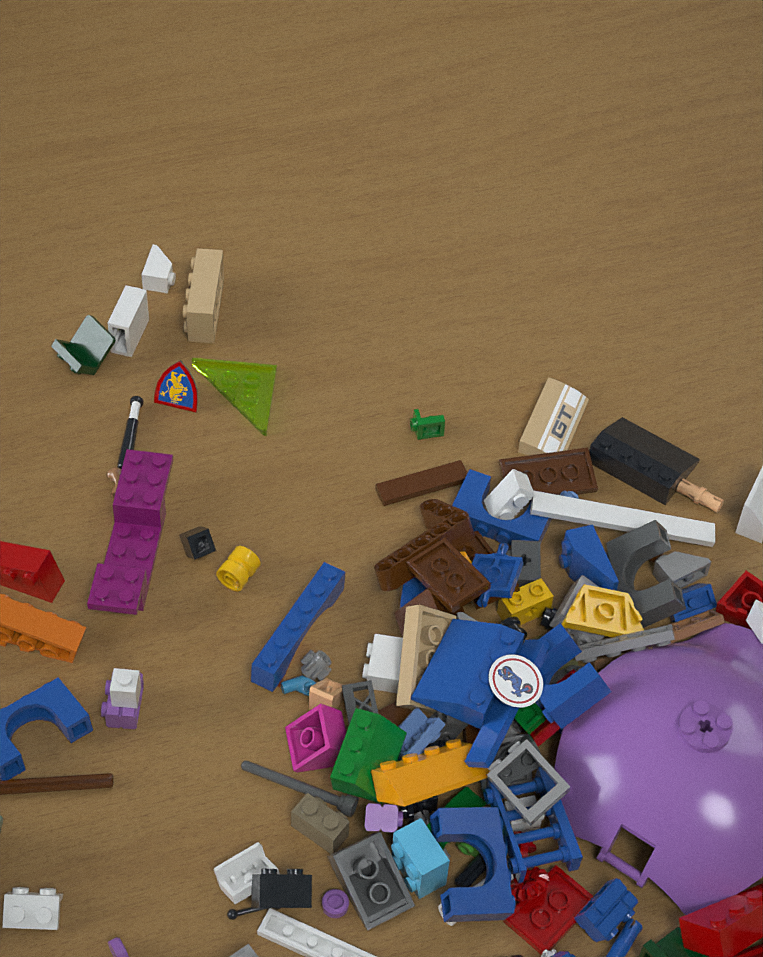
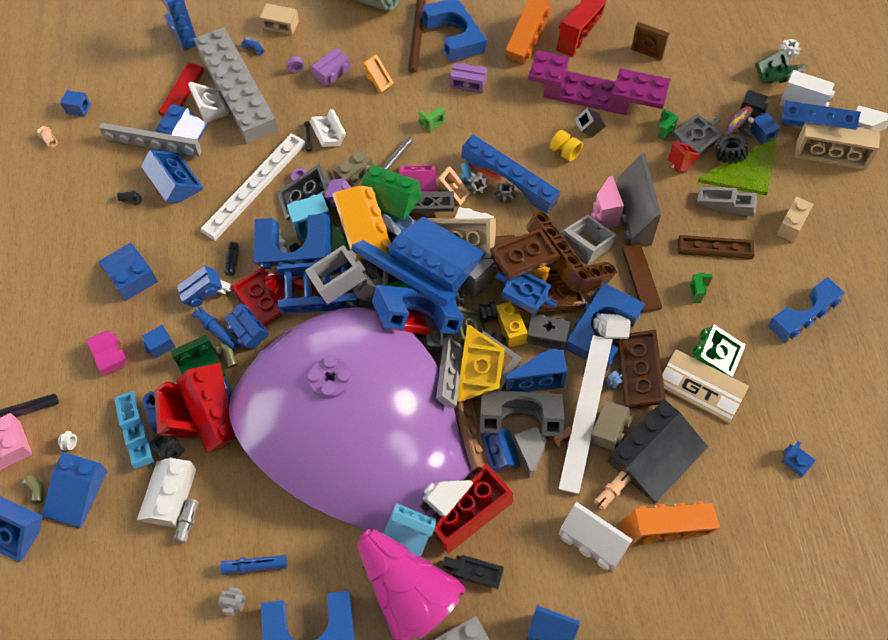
camera: 105 degrees right, 10 degrees up
(32, 909) = (335, 28): white bracket -> none
(43, 340) = (791, 48): none -> white gear
(48, 481) = (649, 41): none -> reddish brown tile
(120, 894) = (331, 67): none -> medium lavender brick
(125, 688) = (465, 66): white brick -> none
(131, 429) = (681, 93): black piece -> none
(132, 821) = (377, 73): none -> light orange tile
(141, 377) = (756, 102): none -> black brick
(175, 304) = (798, 113): none -> blue fence
(186, 357) = (764, 128): none -> blue brick
(188, 462) = (668, 124): none -> green bracket
(197, 432) = (698, 133): none -> dark grey plate
(209, 735) = (432, 120): none -> bright green bracket
(224, 405) = (732, 148): none -> black tyre
(245, 440) = (682, 156): none -> red slope
(281, 890) = (307, 141): black brick -> none
(297, 400) = (728, 200): none -> light grey slope
(316, 338) = (794, 219): none -> tan brick
(326, 632) = (505, 192): none -> dark grey gear
(330, 476) = (640, 203): none -> dark grey slope
(333, 513) = (608, 205): none -> bright pink slope
(363, 415) = (716, 247): none -> reddish brown tile
(410, 520) = (583, 249): none -> light grey window
(417, 317) = (790, 322): none -> blue arch
(509, 407) = (718, 350): none -> plate
(515, 681) = (411, 270): white sticker -> none
(614, 344) = (797, 459): none -> blue bracket
(631, 493) = (611, 426): none -> dark tan brick
(650, 928) = (228, 354): none -> olive arm
(727, 443) = (669, 522): none -> orange wedge

